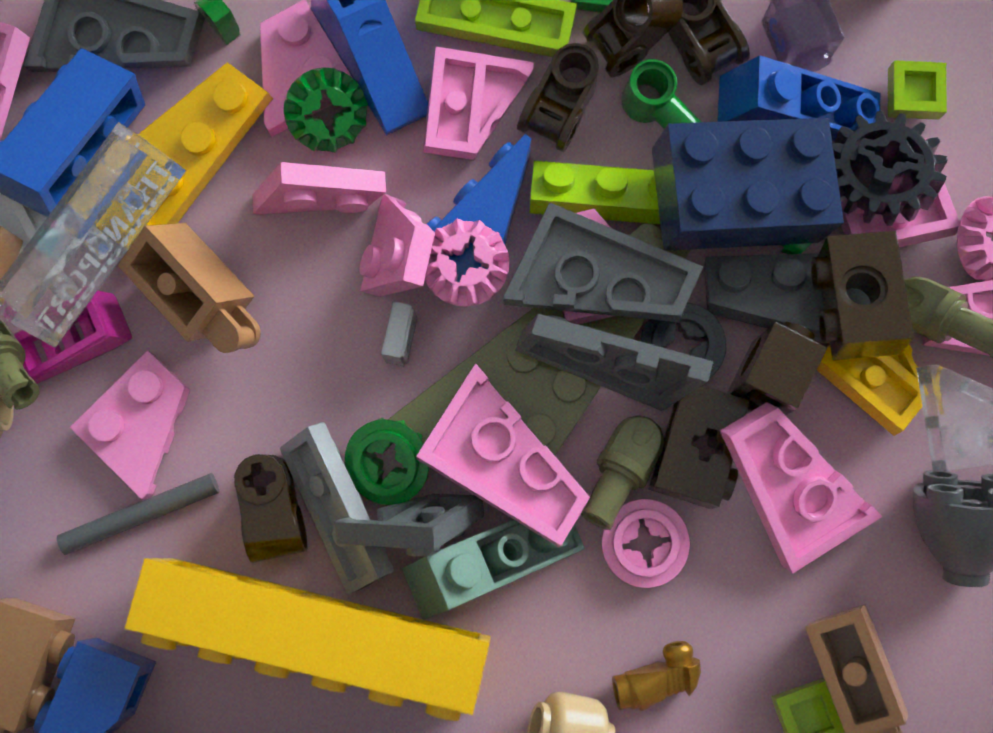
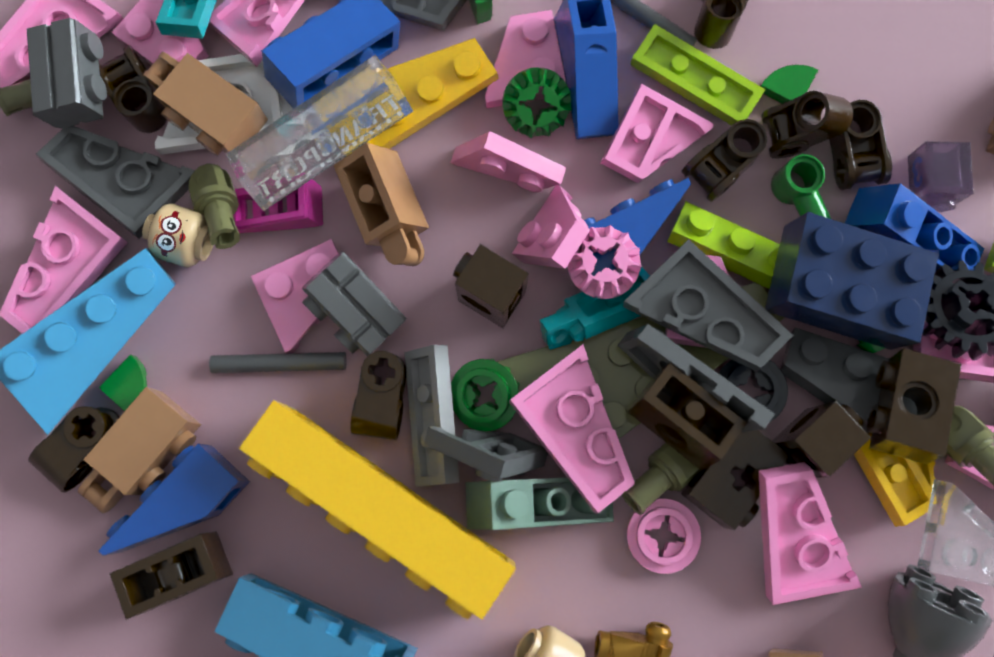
camera: 20 degrees right, 0 degrees up
(198, 415) = (352, 304): none -> dark grey brick
(345, 335) = (490, 285): none -> dark brown brick
(399, 334) = (530, 298): light grey tile -> none
(469, 331) = (587, 316): none -> teal hinge
(620, 401) = (687, 417): none -> dark brown brick

